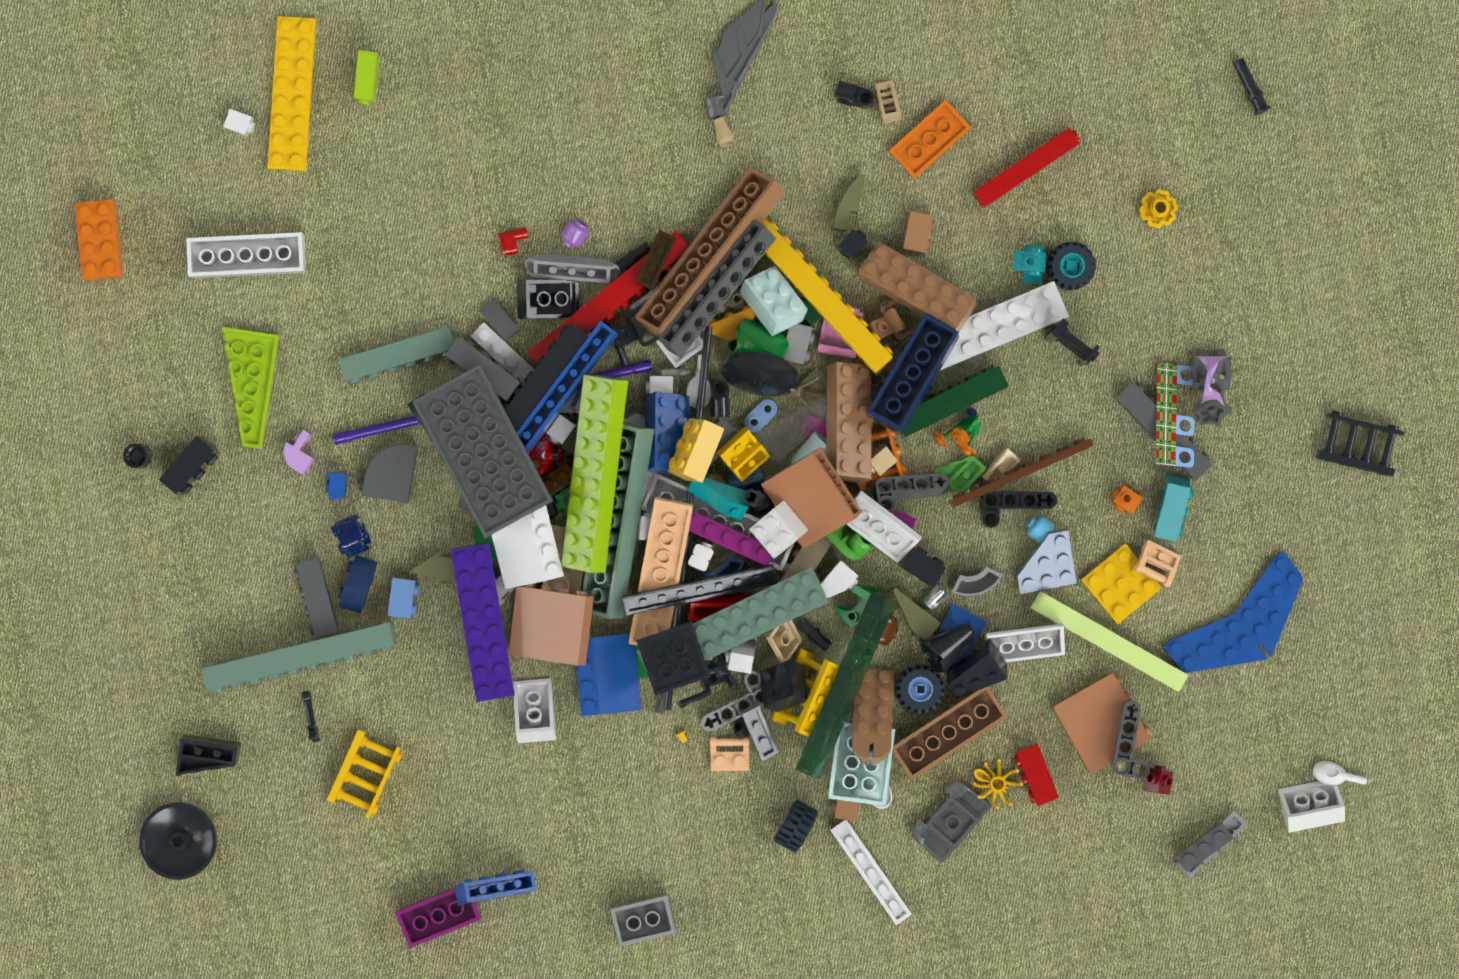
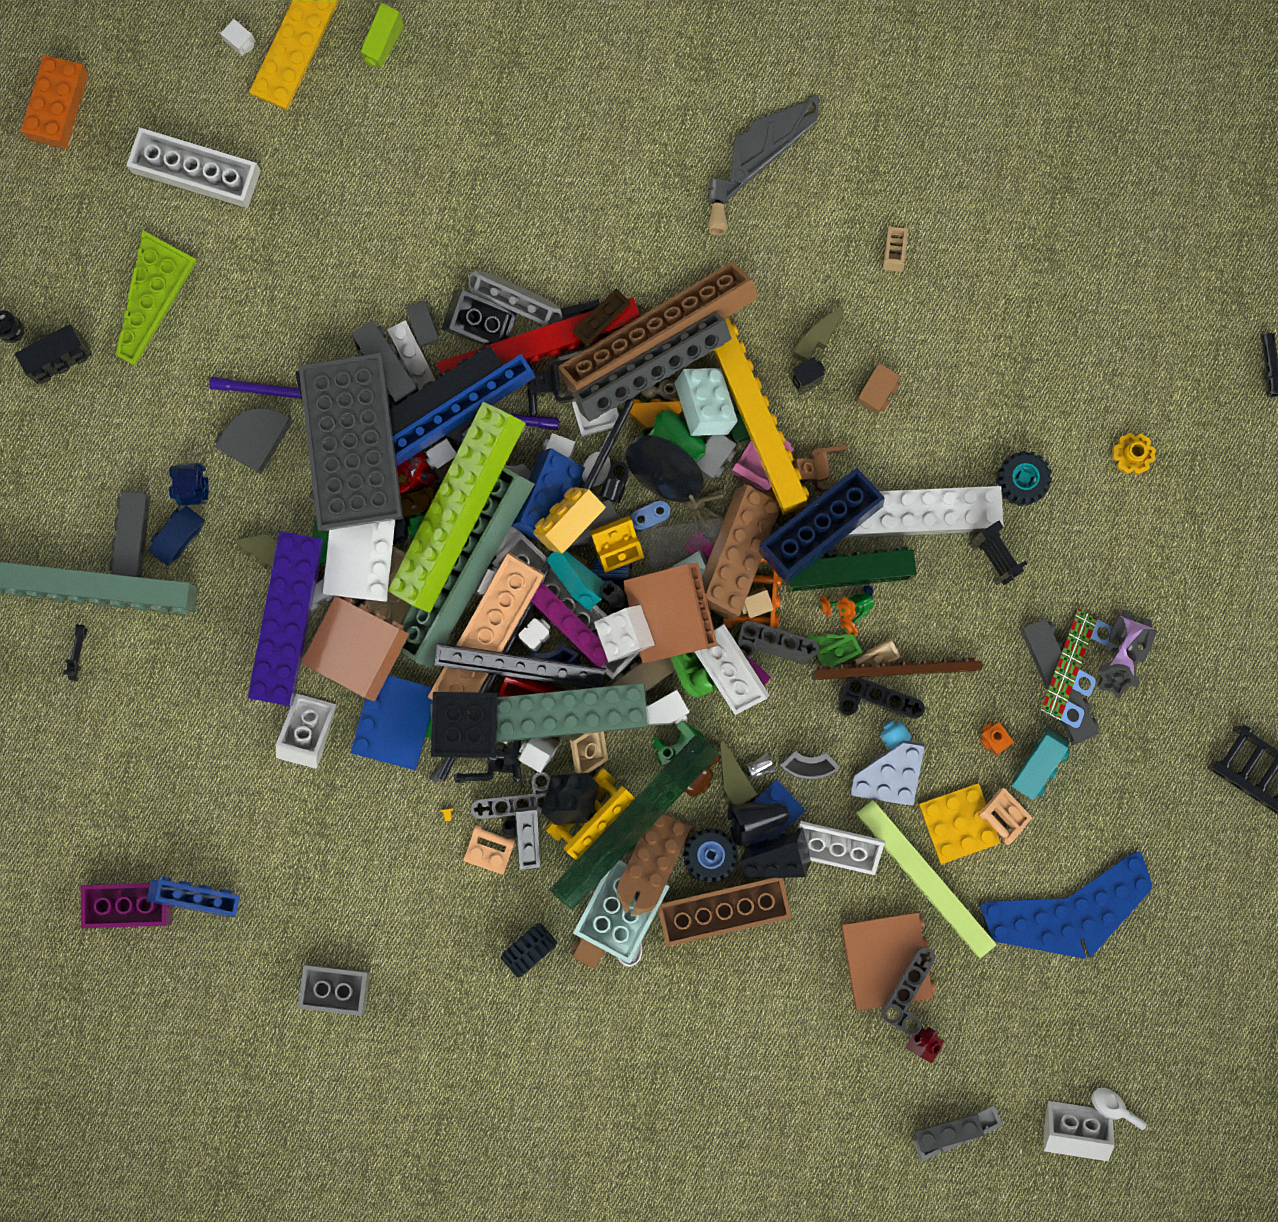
camera: 25 degrees right, 5 degrees down
(295, 456) = (164, 382): lavender brick -> none
(336, 486) = (194, 429): blue brick -> none
(353, 758) = (88, 725): yellow fence -> none
(396, 354) = (303, 320): sand green brick -> none
(402, 598) = (217, 566): medium blue brick -> none
(509, 238) = (462, 248): red piece -> none
(574, 233) = (530, 264): medium lavender head -> none
(682, 372) = (578, 439): light grey piece -> none
(813, 634) = (622, 758): black pin -> none
(851, 95) = (860, 227): black piece -> none
(871, 872) = (590, 1028): white plate -> none
(916, 287) = (857, 440): medium nougat brick -> none
(923, 567) = (760, 729): black brick -> none
(930, 139) = (924, 300): orange plate -> none
(951, 821) = (693, 1006): dark grey piece -> none
(996, 783) = (754, 983): yellow animal -> none
(1026, 167) = (1013, 364): red brick -> none
(1031, 262) = (985, 461): teal tile -> none
(1036, 775) = (799, 990): red brick -> none

